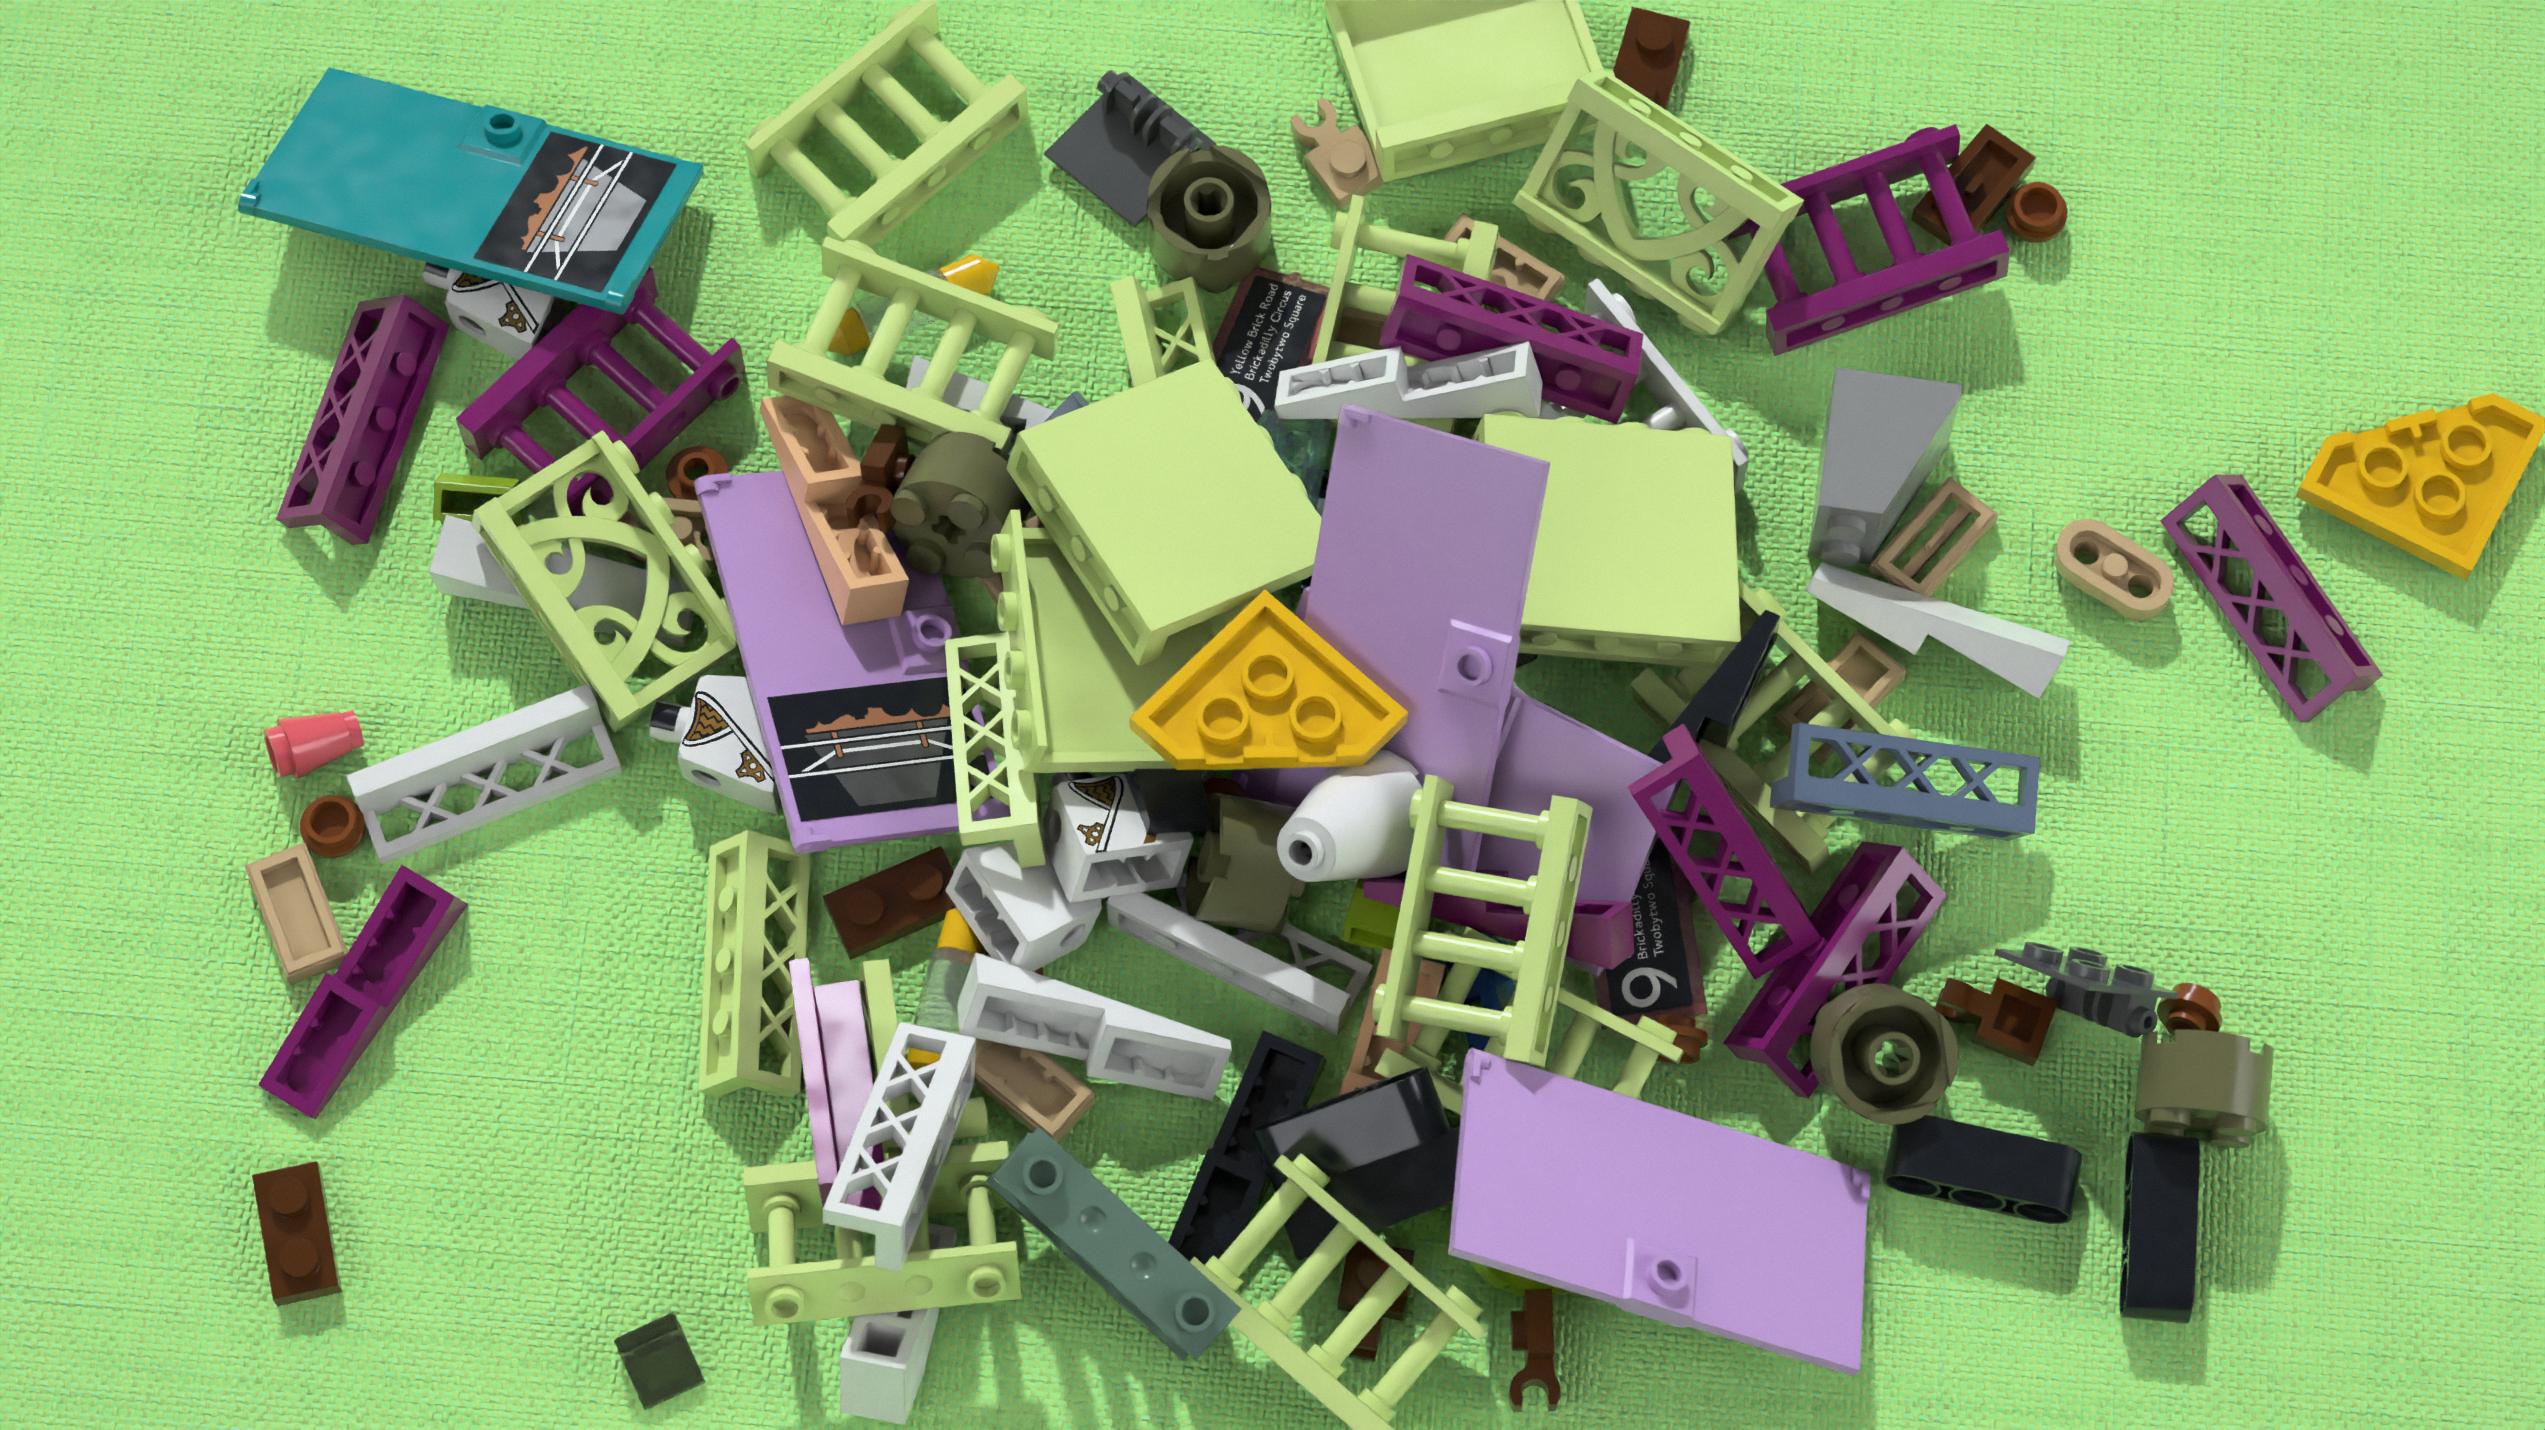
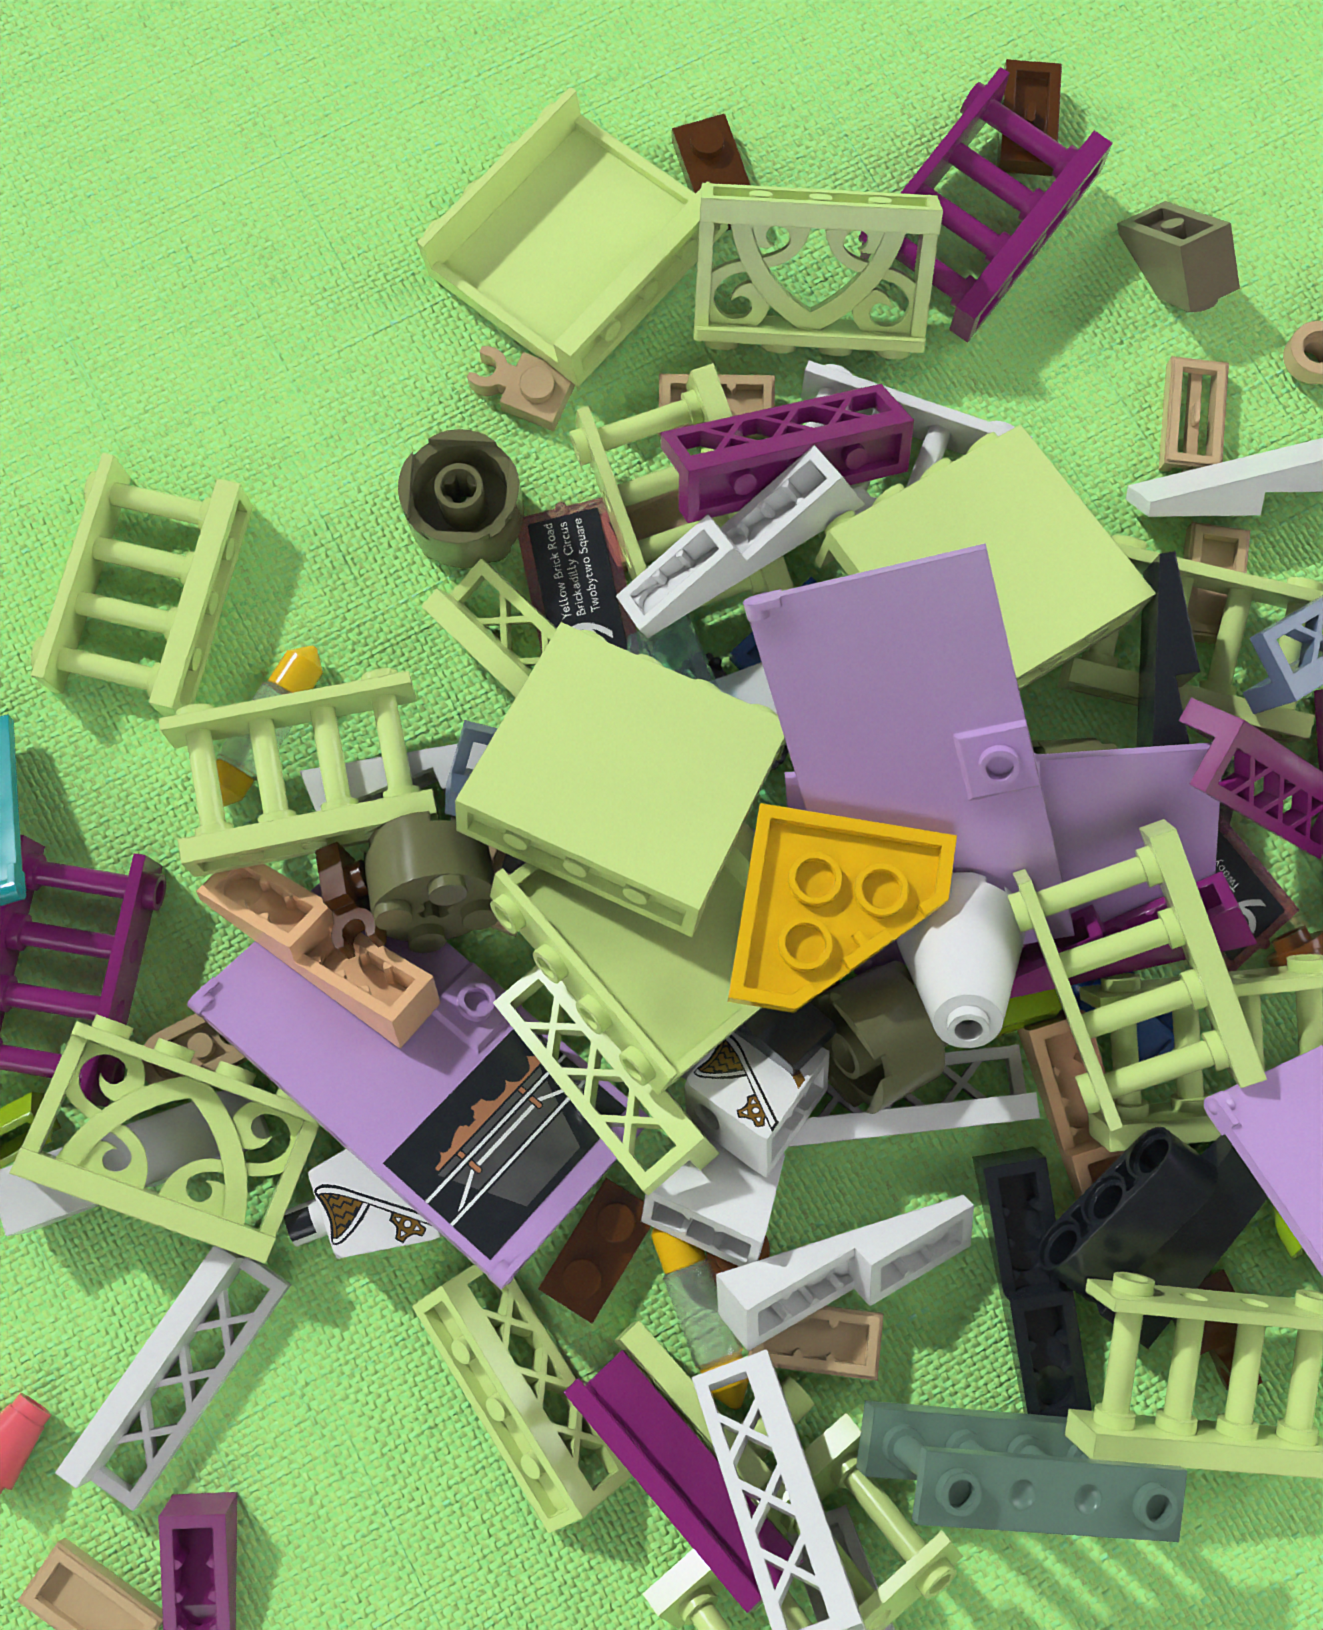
camera: 35 degrees left, 10 degrees up
(332, 826) = (72, 1513): dark orange plate -> none
(686, 460) = (166, 975): dark orange plate -> none
(1123, 143) = (350, 482): dark grey hinge -> none
(1874, 458) = (1123, 377): light grey slope -> none
(2021, 393) = (1183, 255): none -> dark tan slope
(2036, 212) = (1086, 108): dark orange plate -> none

